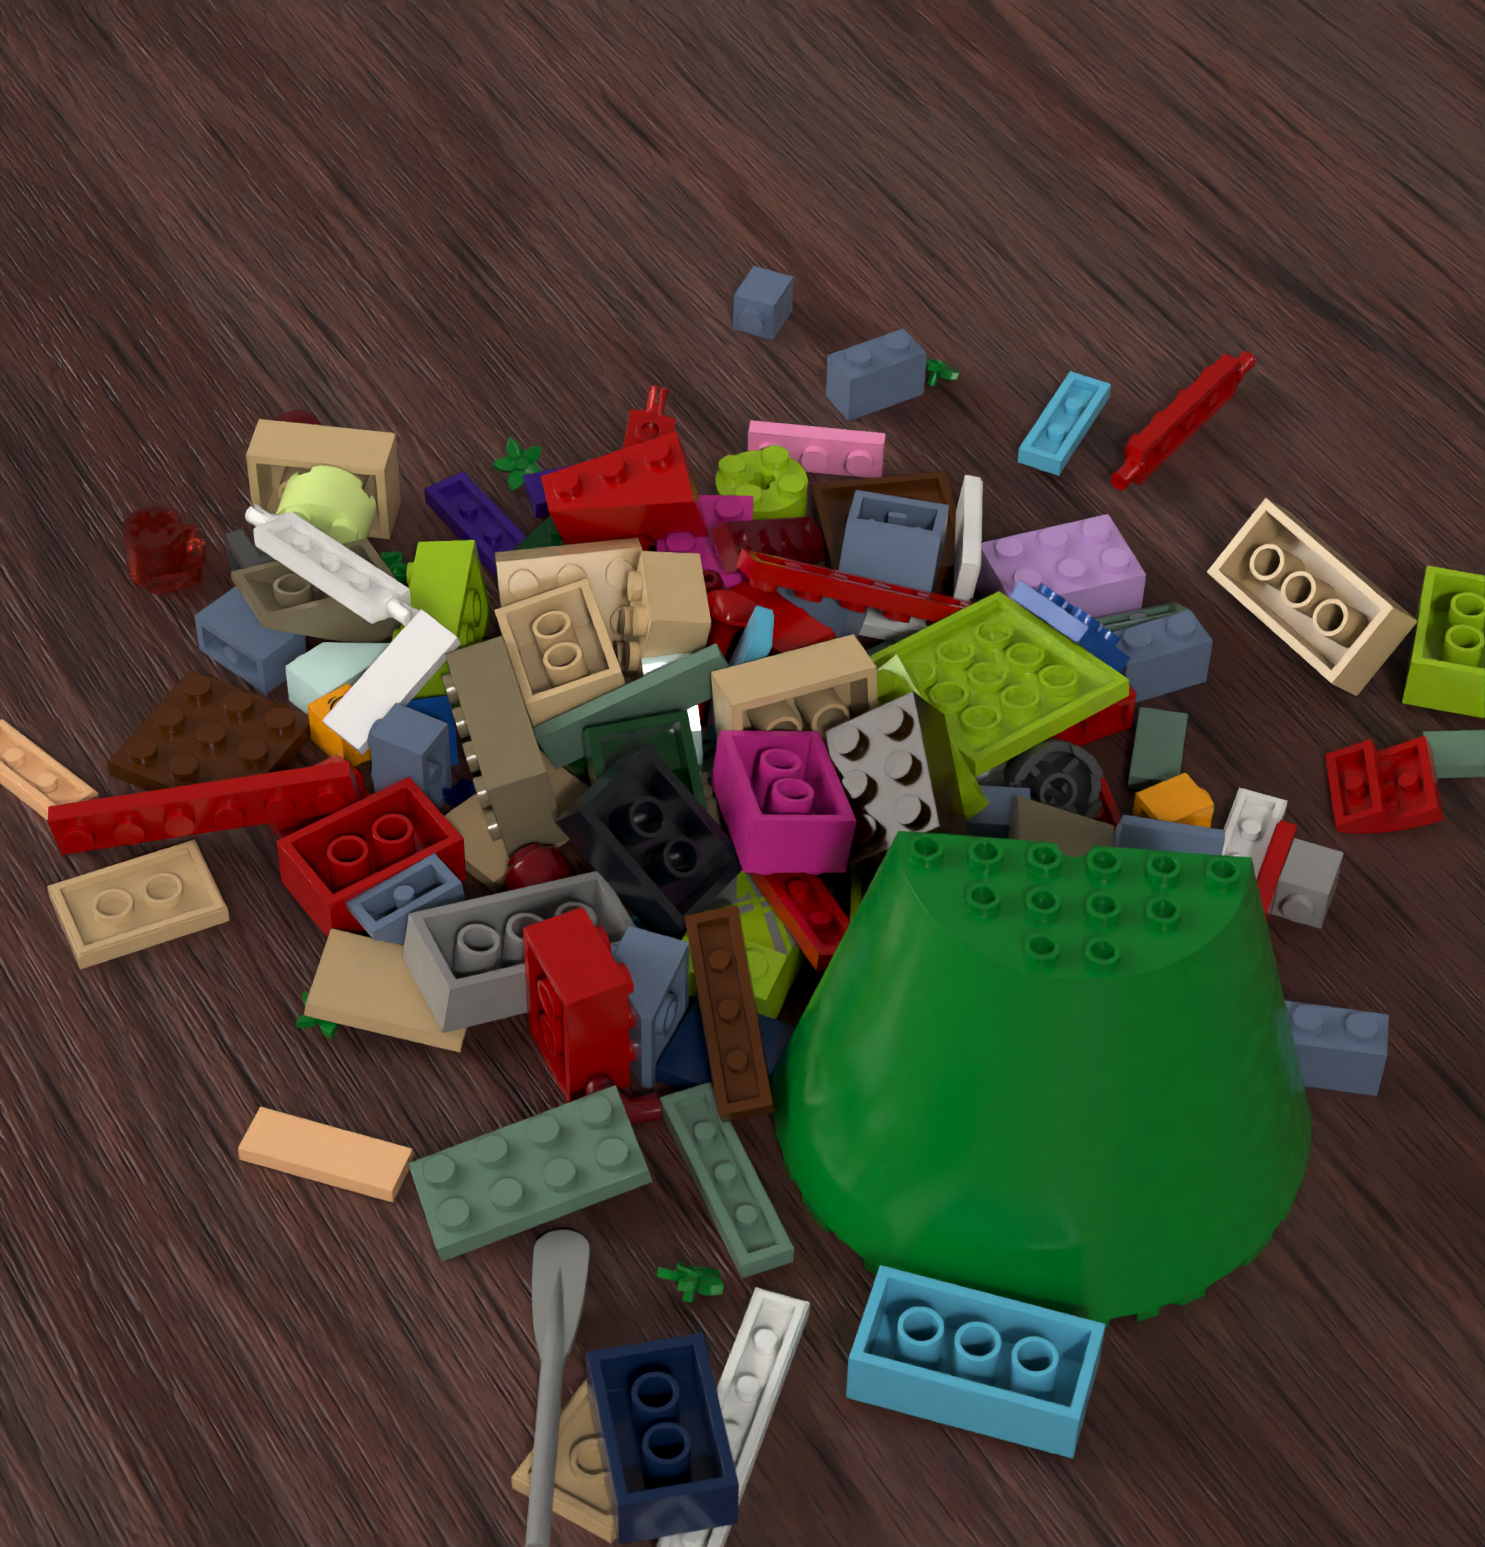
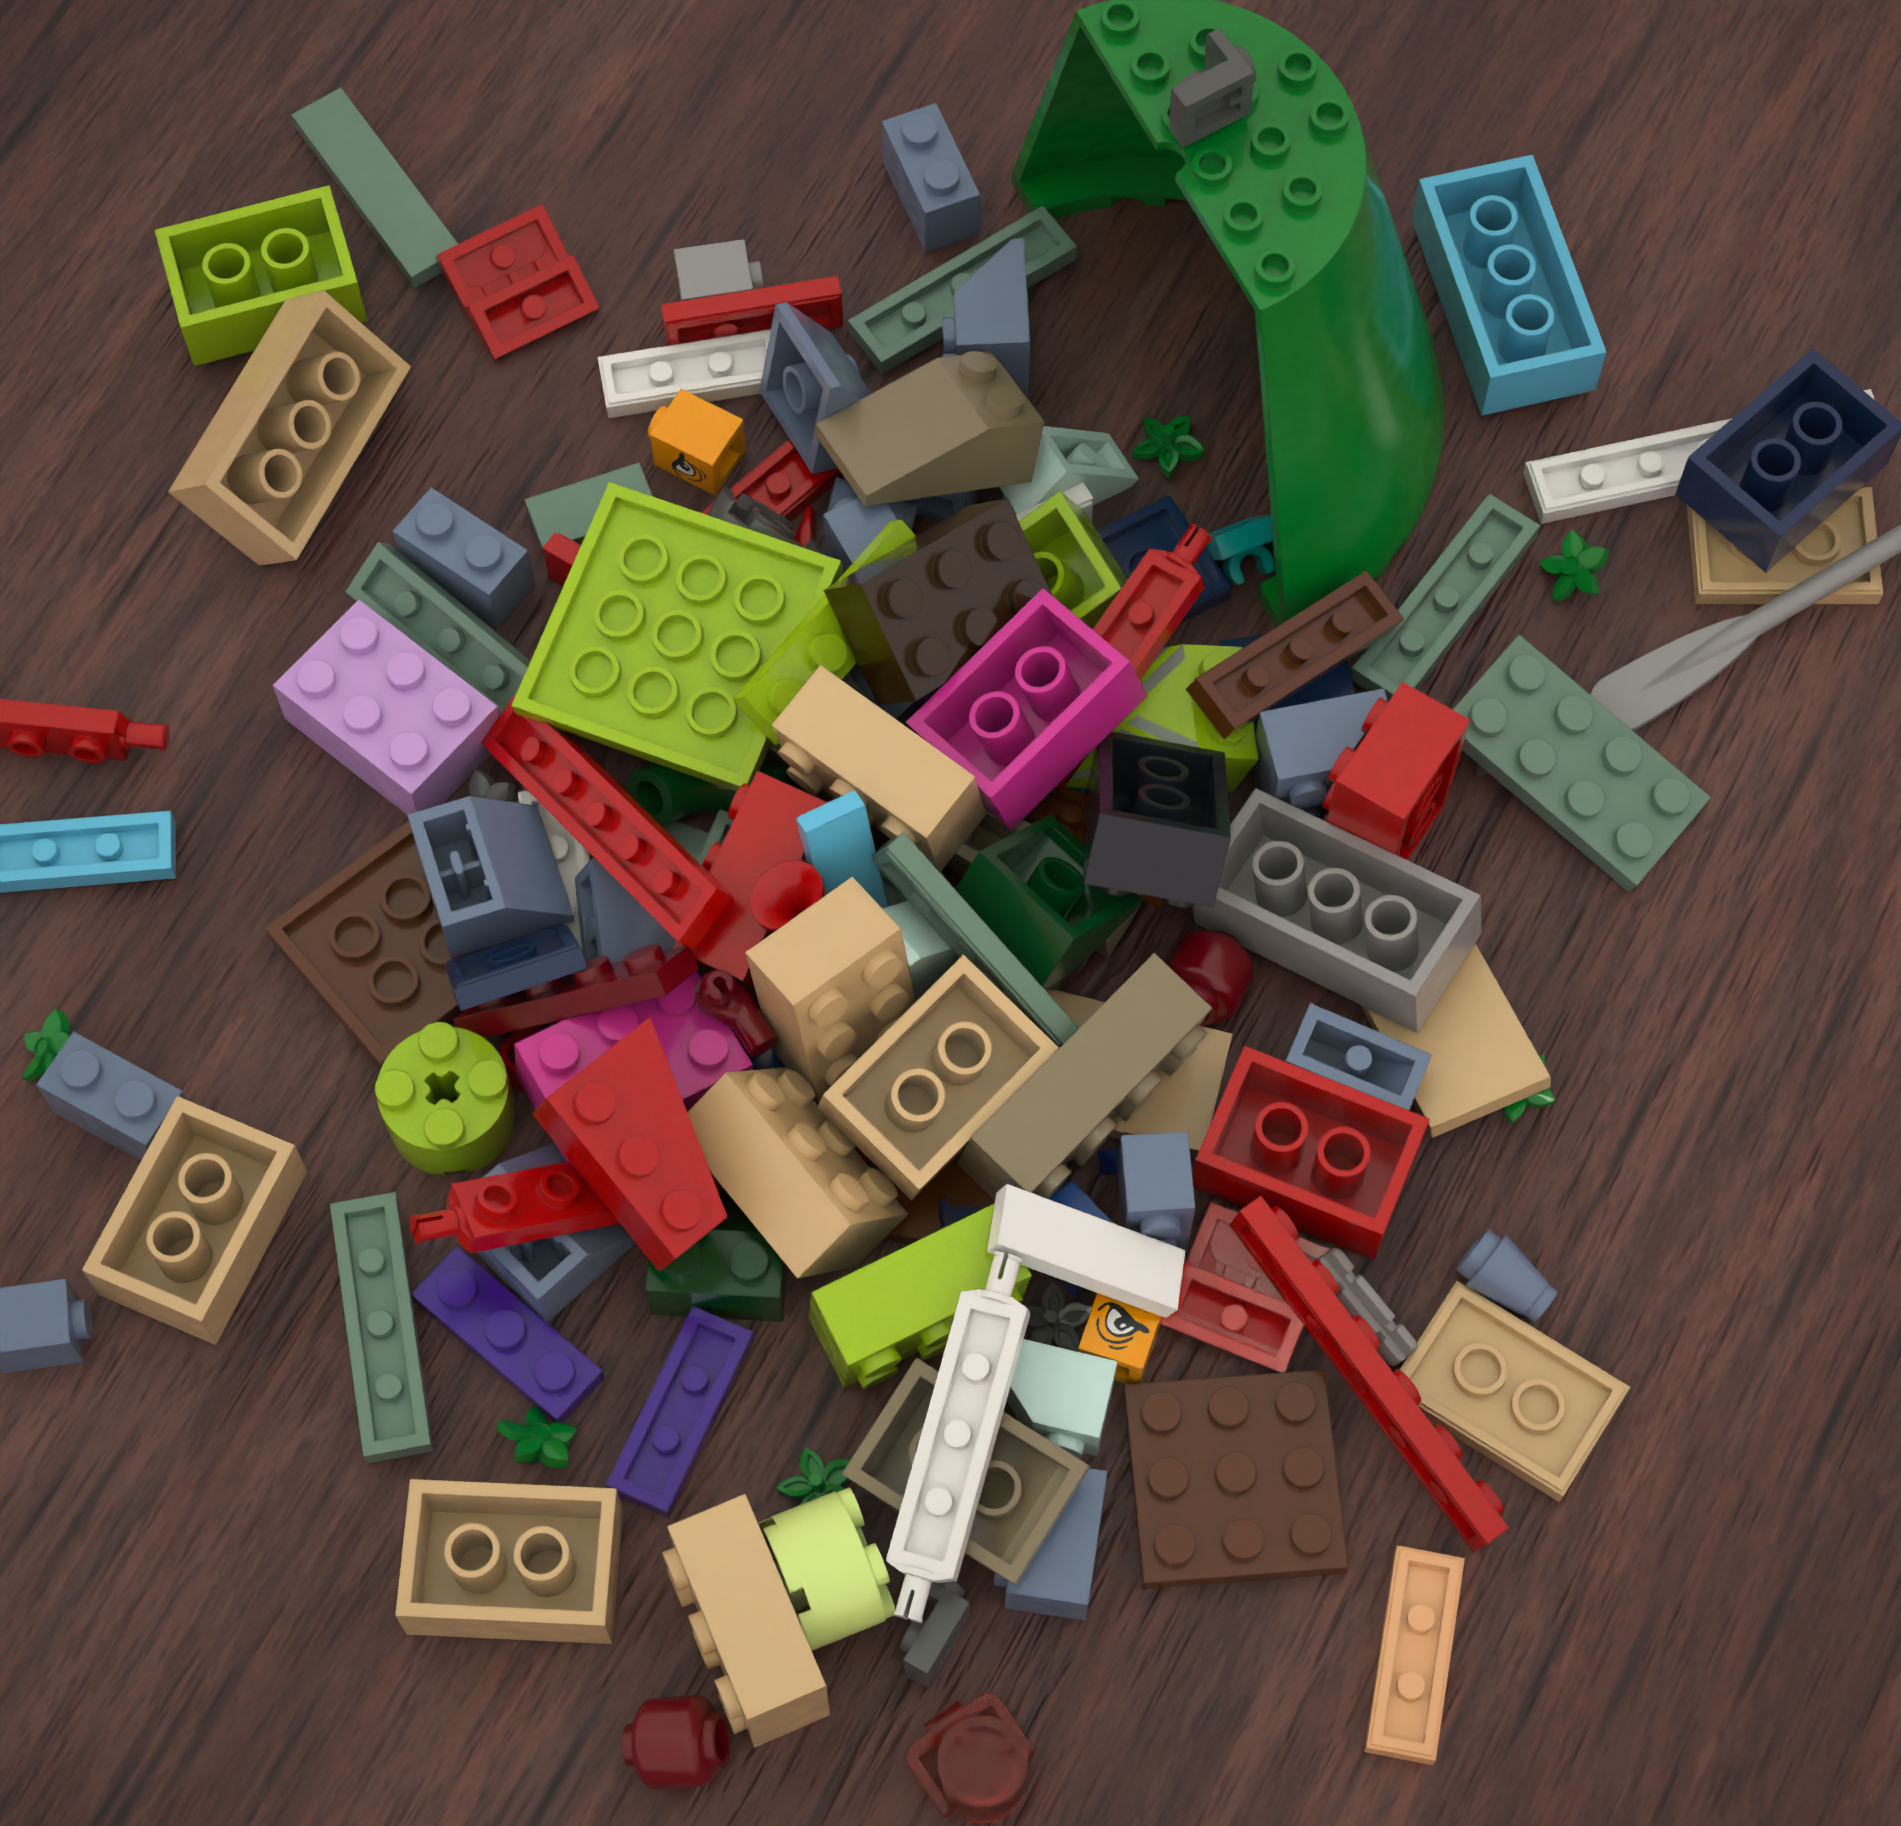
camera: 120 degrees left, 20 degrees up
(206, 932) = (1506, 1276): none -> sand blue cone
(246, 848) = (1361, 1299): none -> light grey axle
(326, 1154) = (1675, 976): light nougat tile -> none
(454, 410) = (510, 1561): none -> tan brick
(607, 422) = (381, 1328): none -> sand green plate
(769, 368) = (195, 1220): none -> tan brick
(808, 520) = (514, 966): none -> dark blue tile
(823, 448) = (308, 1096): bright pink plate -> none
(968, 538) = (383, 819): white tile -> none
(1071, 623) = (535, 598): blue plate -> none
(1097, 867) = (1213, 95): none -> dark grey bracket

